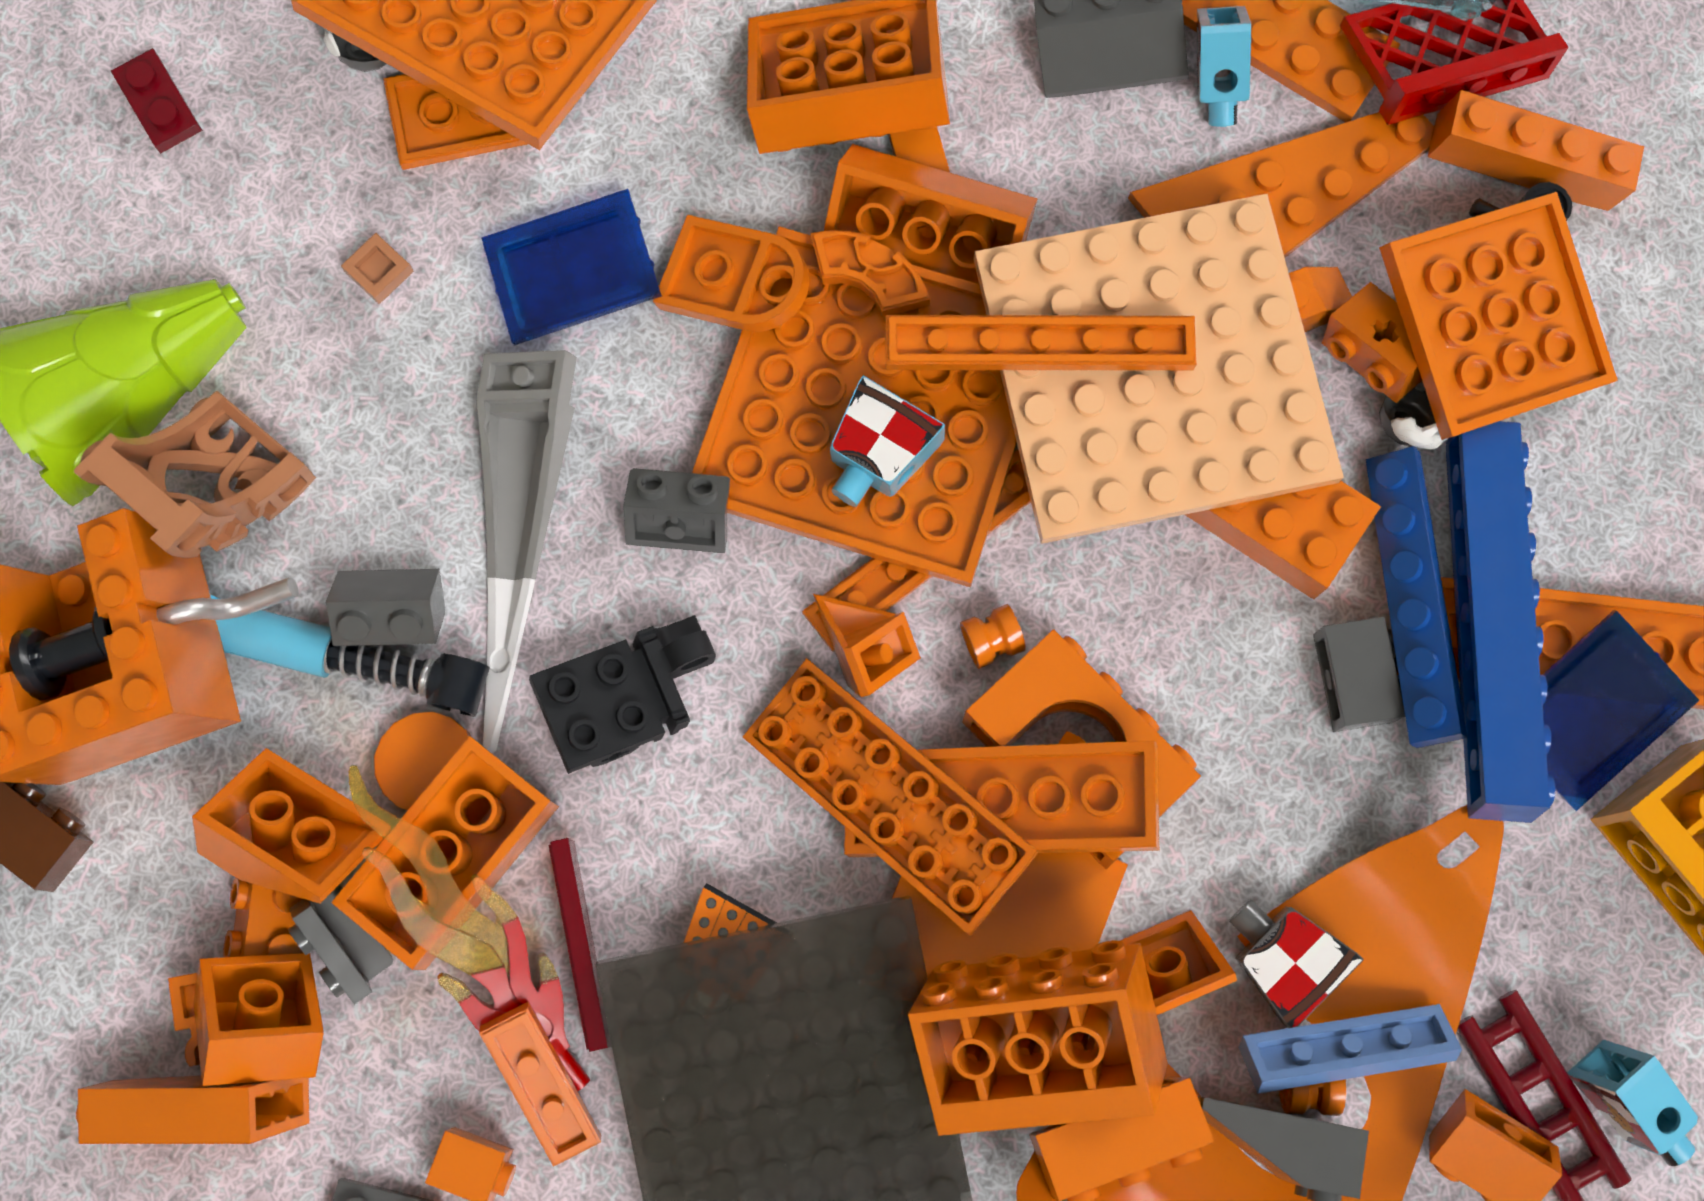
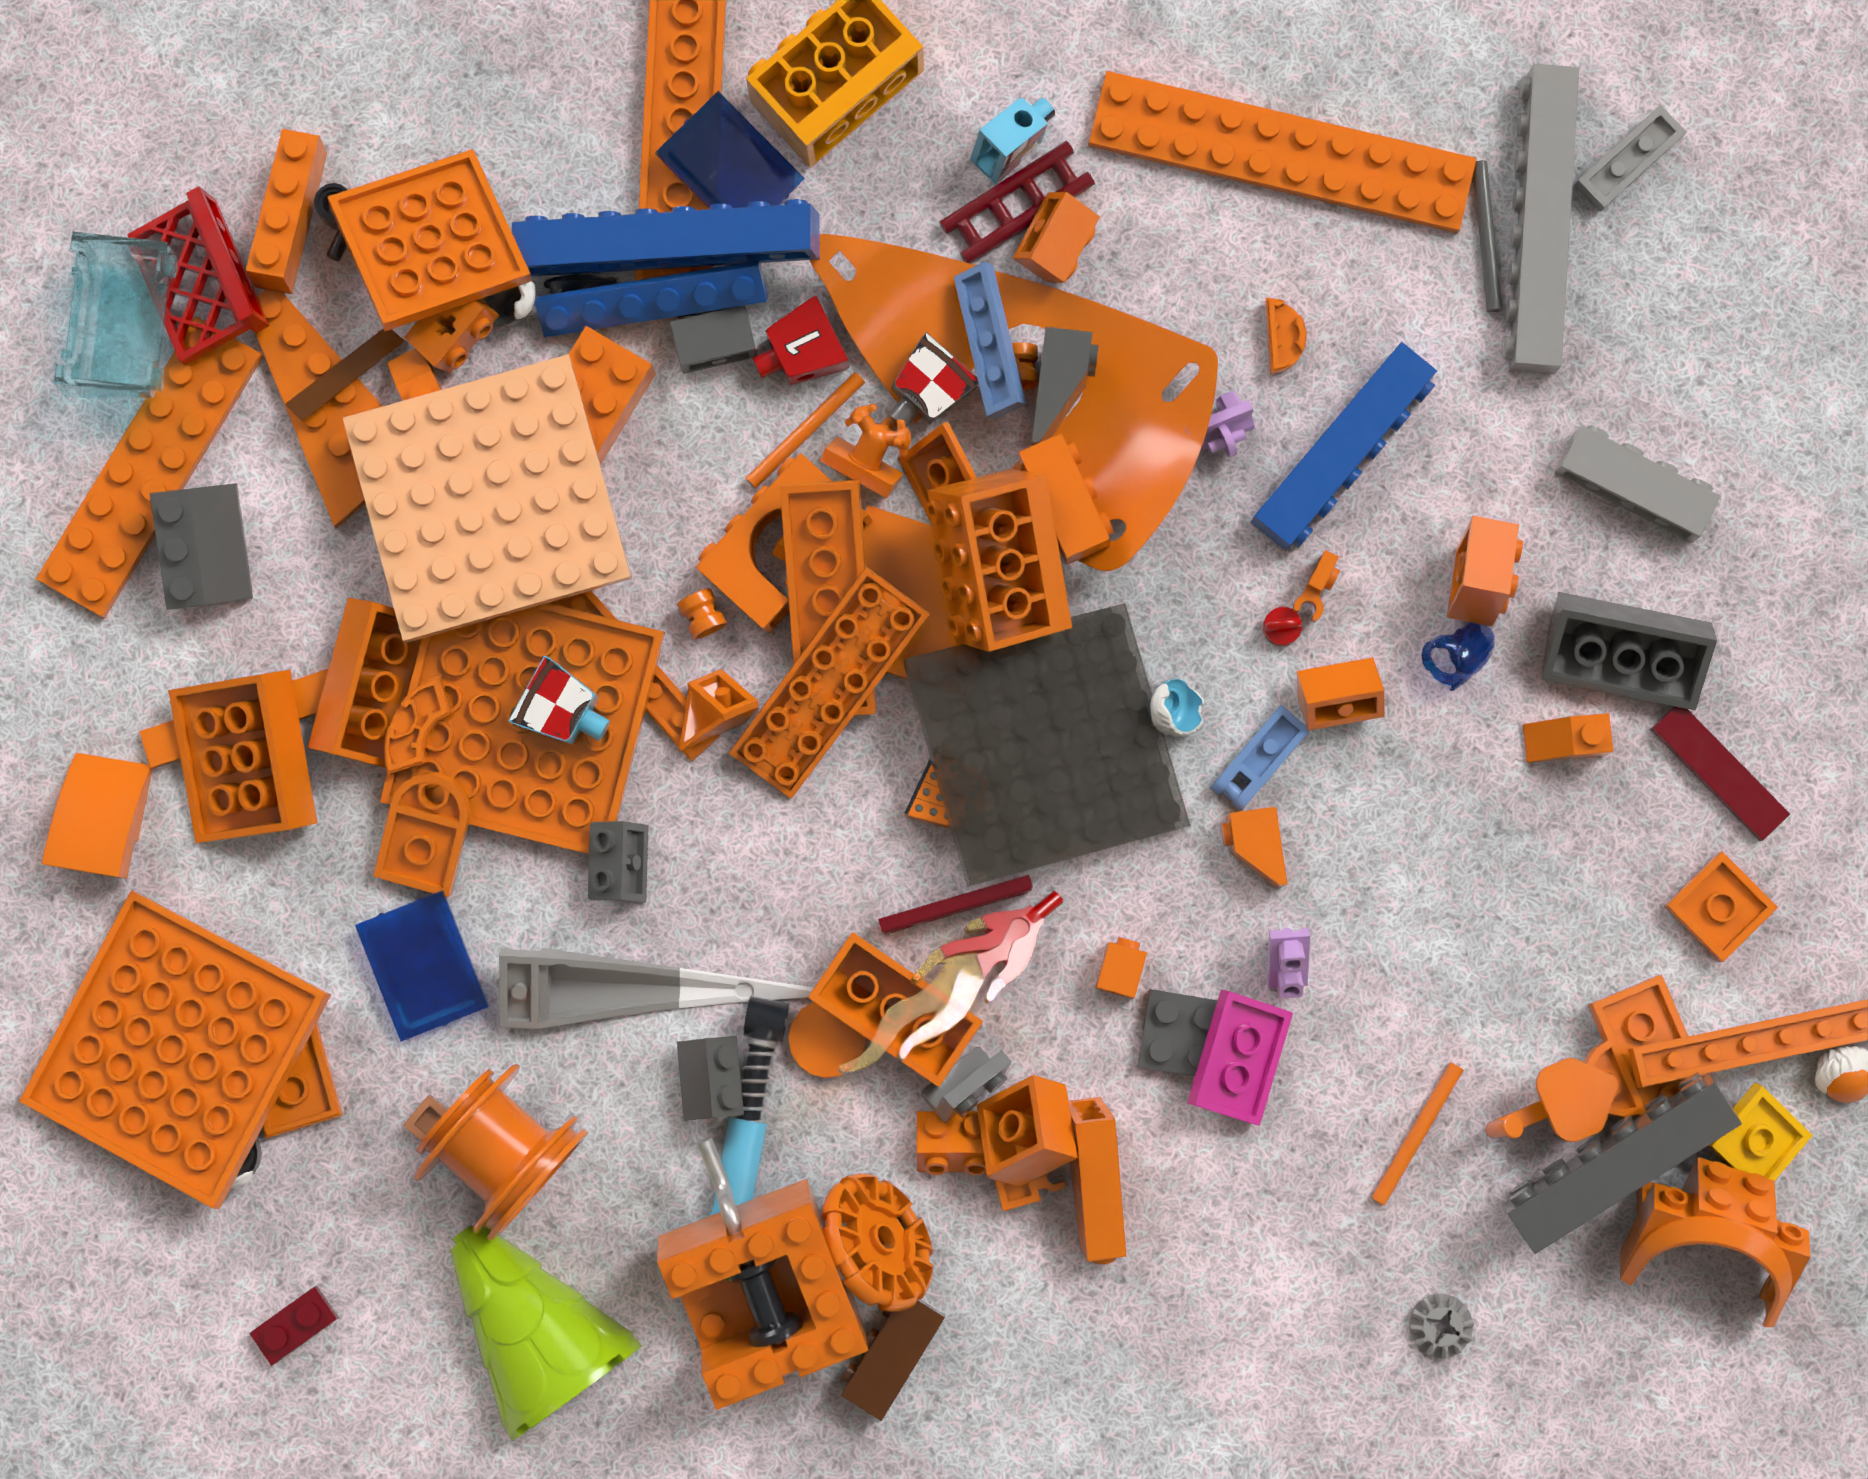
camera: 90 degrees left, 5 degrees up
(122, 841) = (870, 1219): none -> orange plate
(183, 522) = (654, 1230): nougat fence -> none
(283, 830) = (888, 1127): orange slope -> none
(314, 331) = (497, 1149): none -> orange wheel
(540, 1084) = (1058, 923): orange tile -> none
(619, 697) = (764, 891): black plate -> none
(1040, 342) = (477, 586): orange tile -> none
(1187, 863) = (865, 459): none -> orange piece
(1223, 45) = (221, 456): medium azure torso -> none
(1233, 789) = (805, 430): none -> orange bar
(1324, 212) = (344, 373): none -> reddish brown sticker
(1347, 791) = (802, 346): none -> red torso
(1438, 505) = (577, 282): none -> black bar

